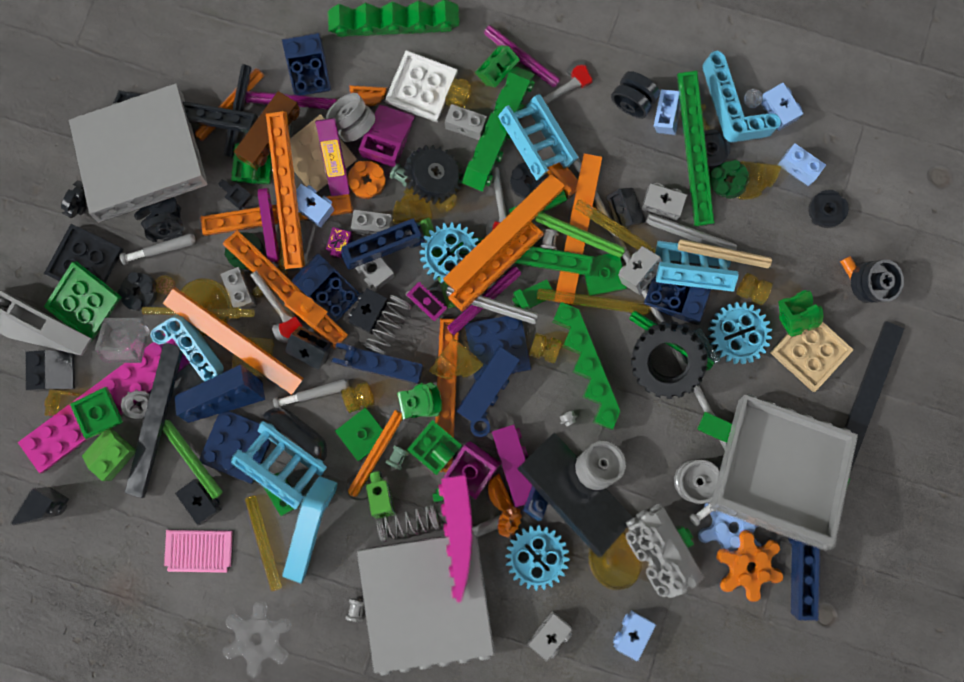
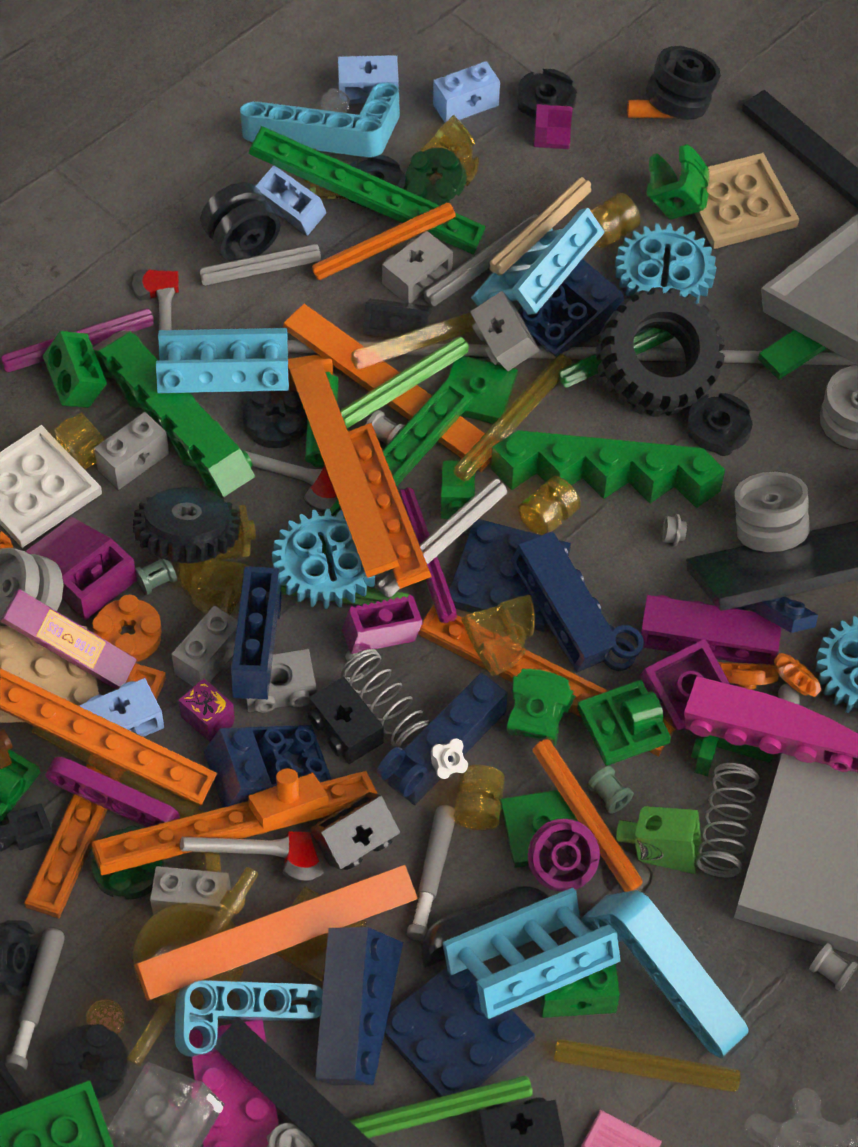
camera: 65 degrees left, 25 degrees down
(340, 454) = (563, 855): none -> magenta cone
(362, 369) = (440, 755): none -> white plate
(621, 119) = (260, 264): none -> light grey axle
(657, 419) = (716, 438): none -> black plate
(669, 175) = (383, 241): none -> orange axle
(805, 224) = (553, 126): none -> magenta panel

